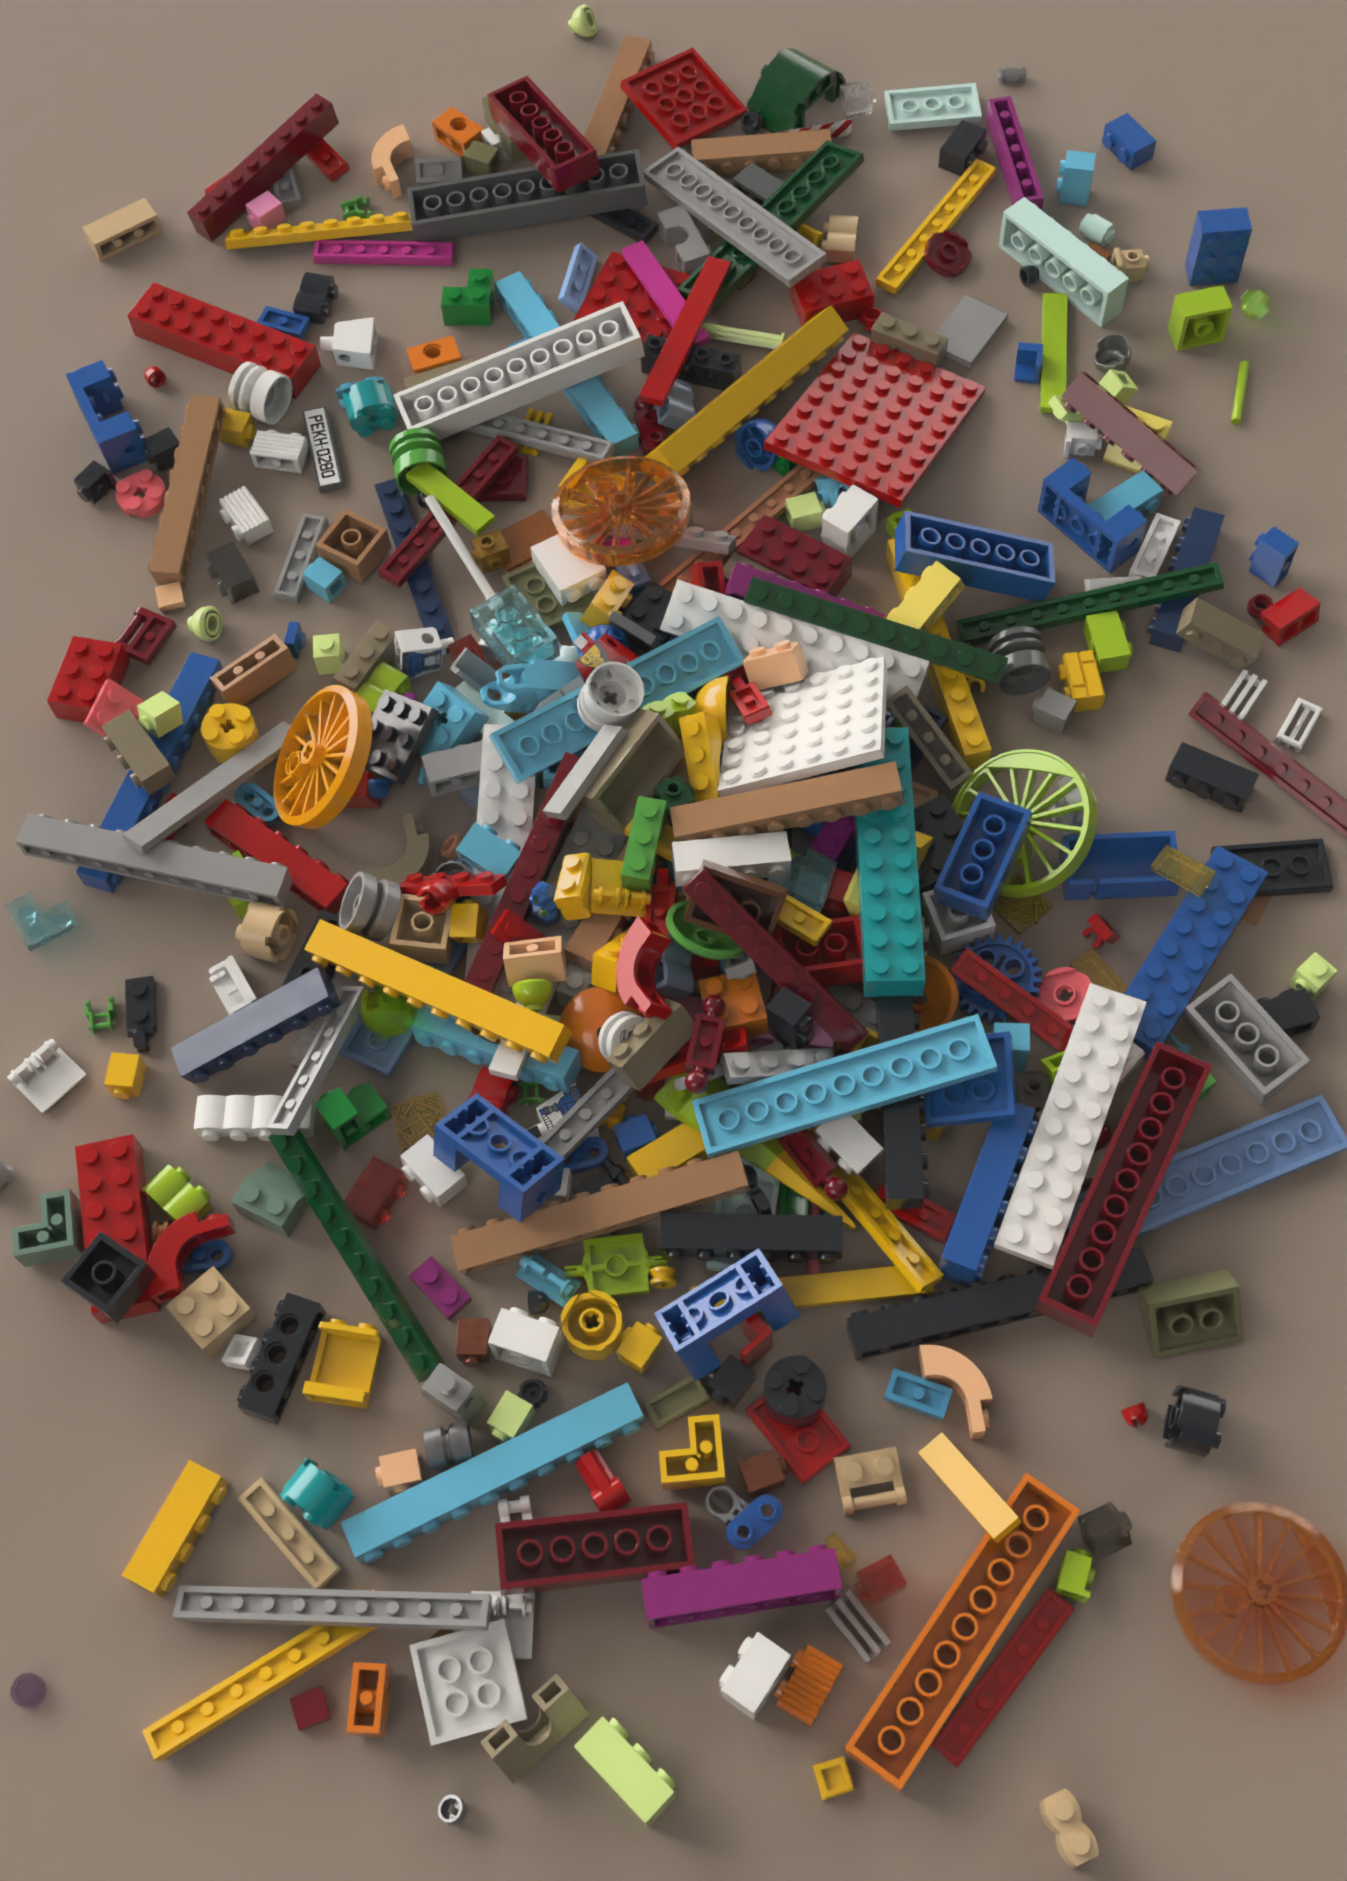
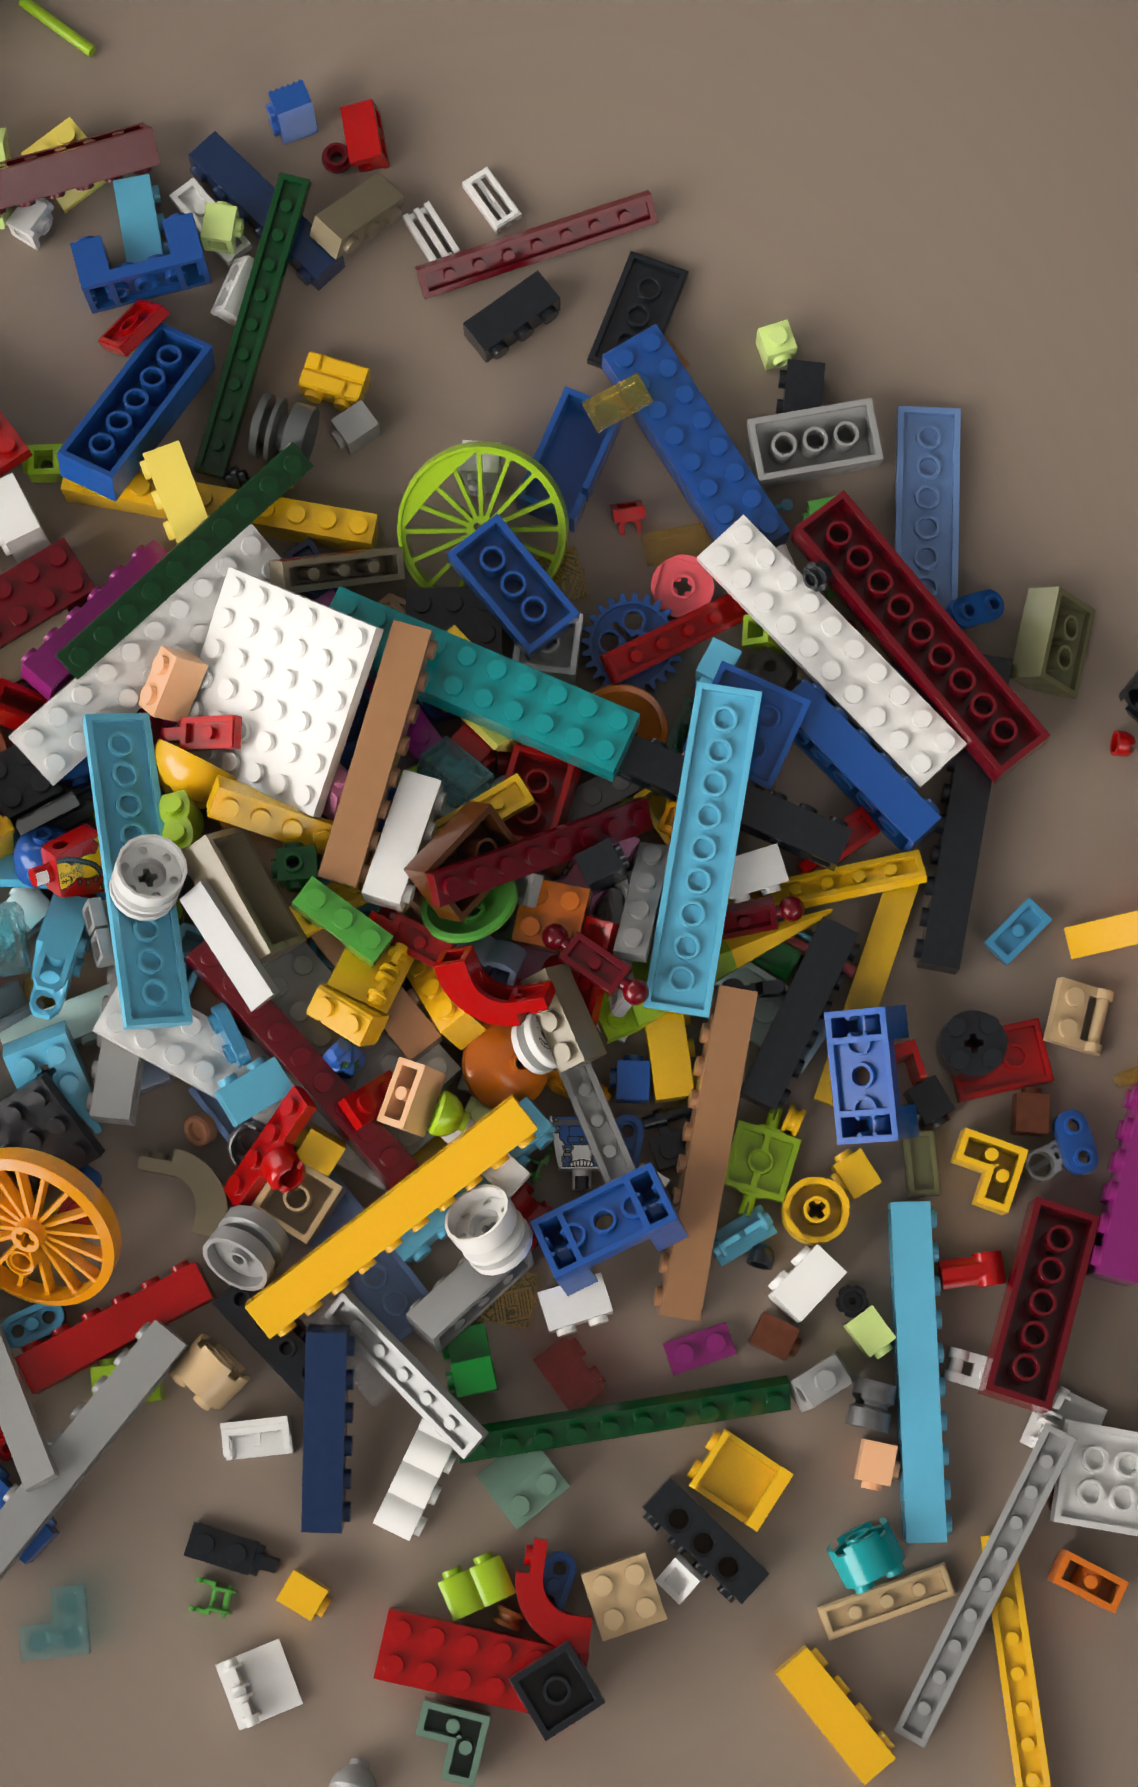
camera: 70 degrees left, 15 degrees up
(310, 1708) = (1064, 1643): dark red tile -> none
(385, 1014) = (383, 1283): clear neon green cylinder -> none
(406, 1082) = (459, 1301): none -> light grey brick
(456, 1065) = (488, 1229): none -> white wheel
(516, 825) = (224, 1023): none -> dark azure plate
(963, 1376) = (1024, 881): light nougat arch -> none
(1039, 532) = (133, 327): none -> red tile
(1107, 639) = (302, 330): lime brick -> none
(1126, 1078) = (817, 575): none -> black plate
(1151, 550) = (221, 227): none -> yellowish green brick
(1182, 1234) = (977, 608): none -> blue plate

